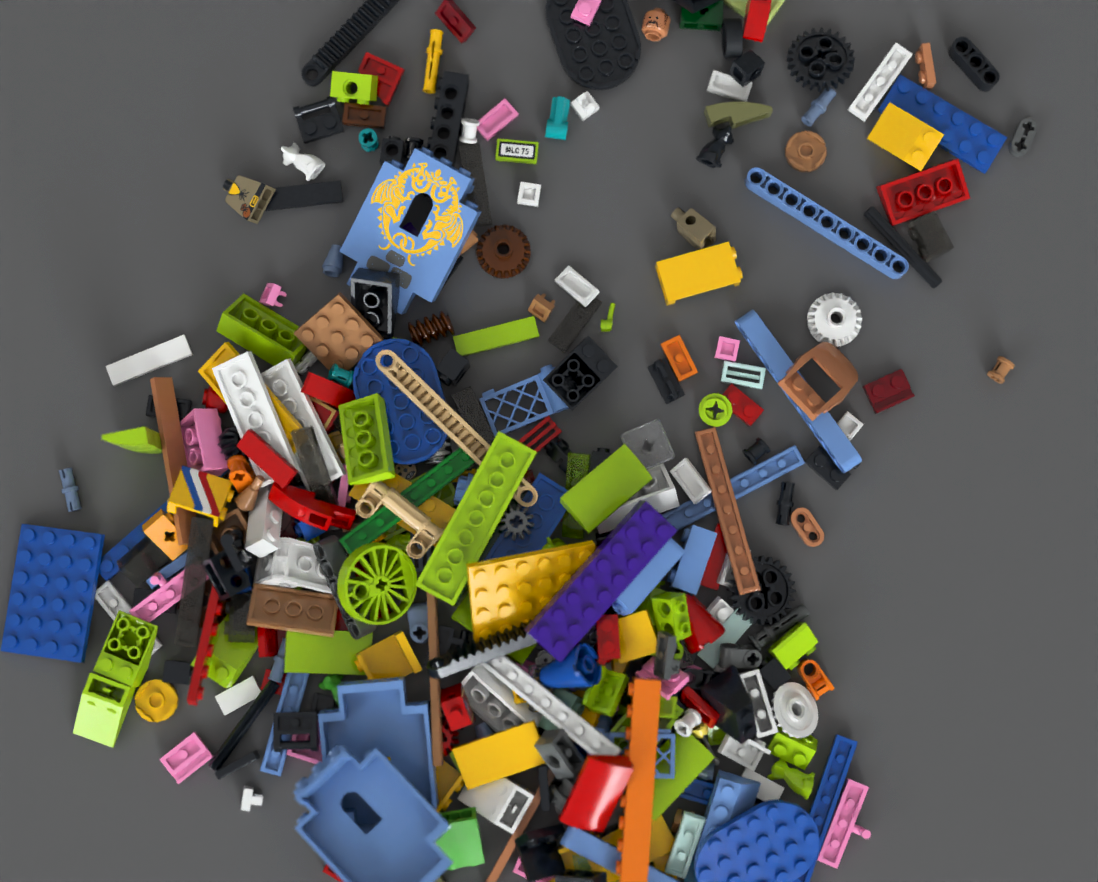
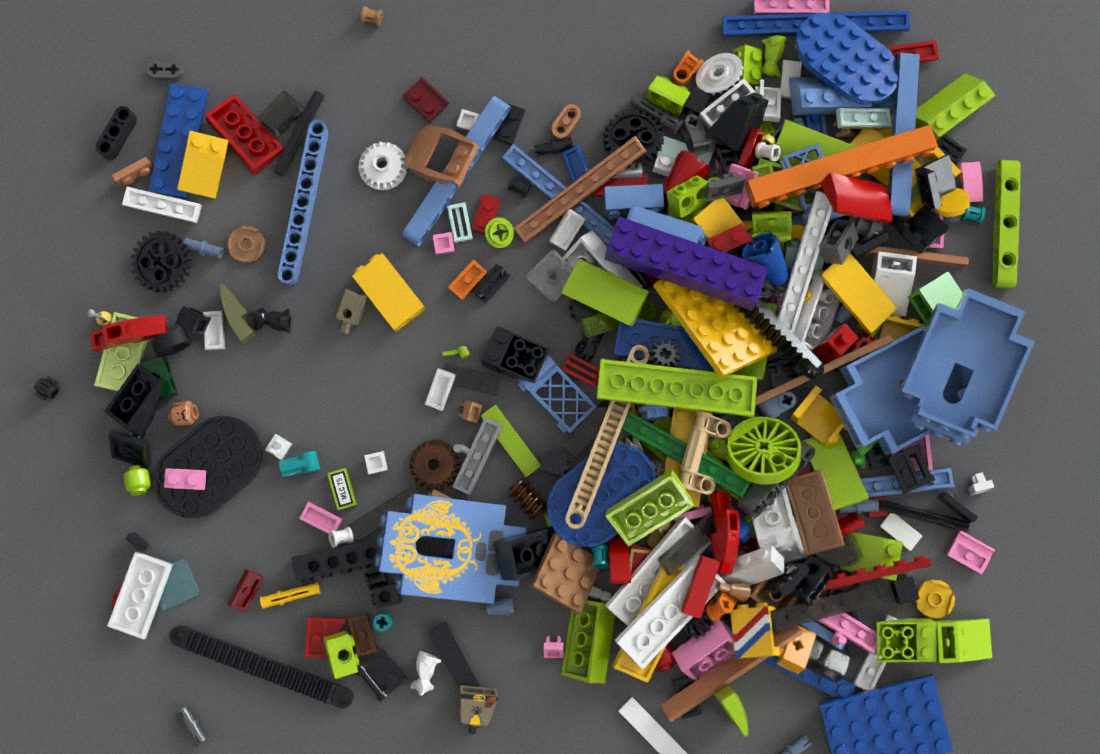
camera: 110 degrees left, 0 degrees up
(494, 295) = (476, 455): none -> light grey plate
(758, 519) = (575, 162): none -> blue tile

